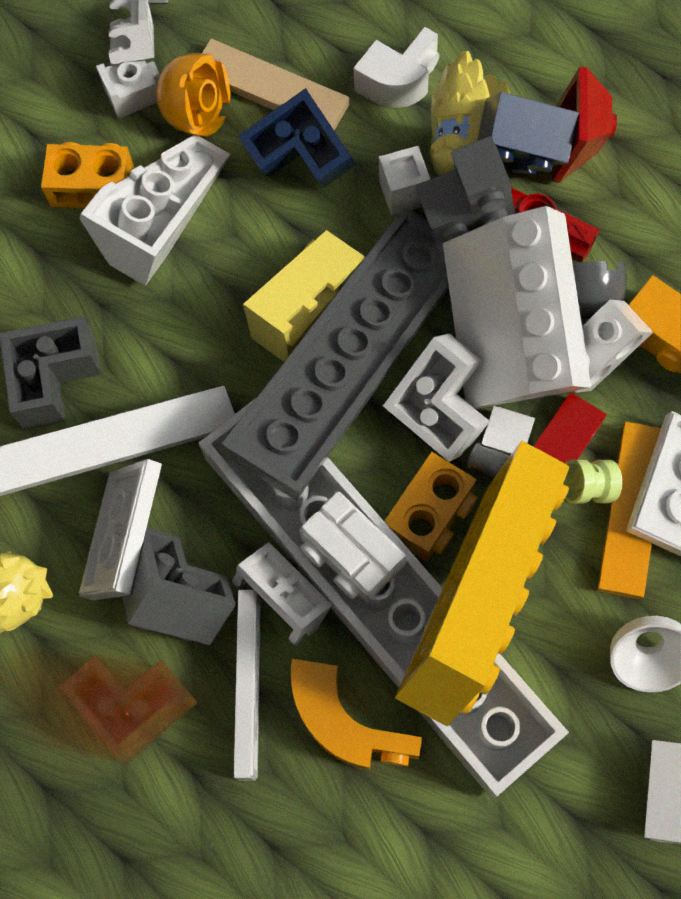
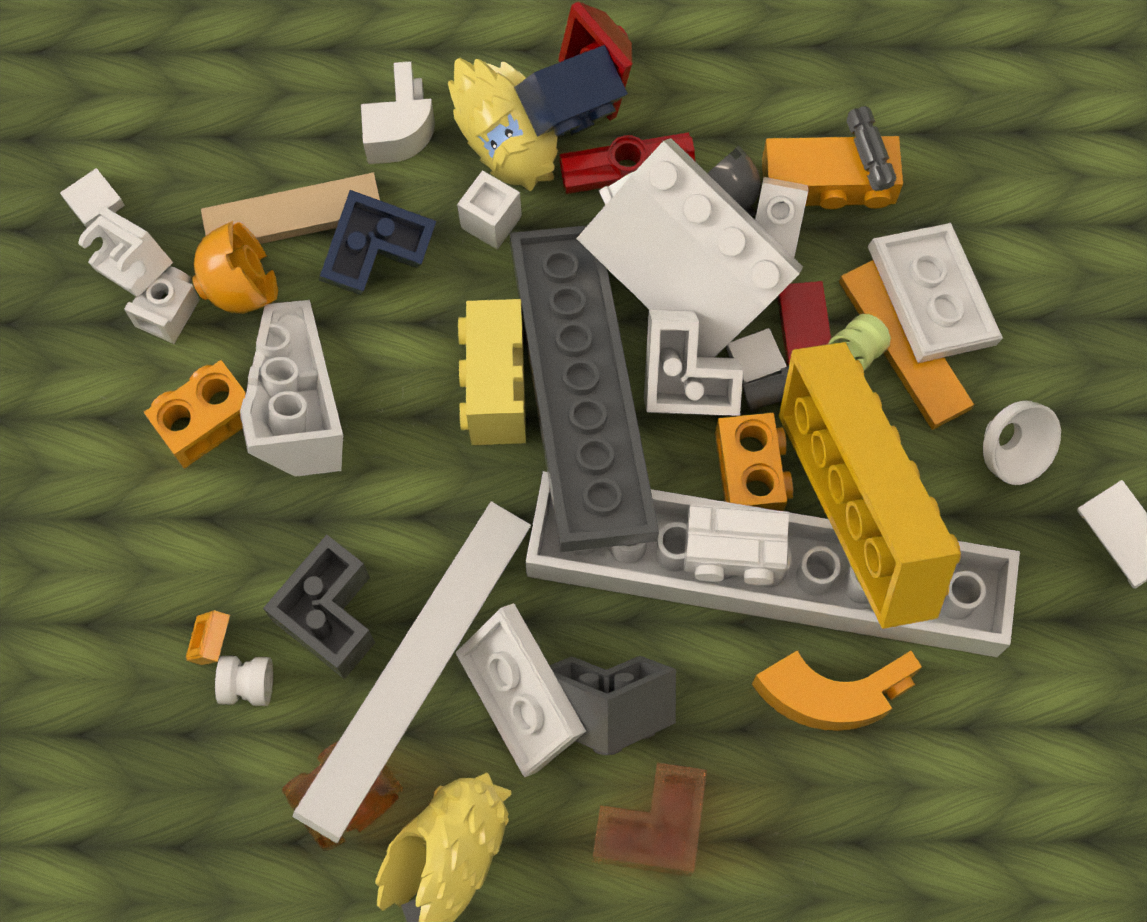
camera: 45 degrees left, 0 degrees up
(247, 686) = (736, 730): white tile -> none
(283, 590) = (699, 626): white hinge -> none
(468, 195) = (571, 176): dark grey brick -> none

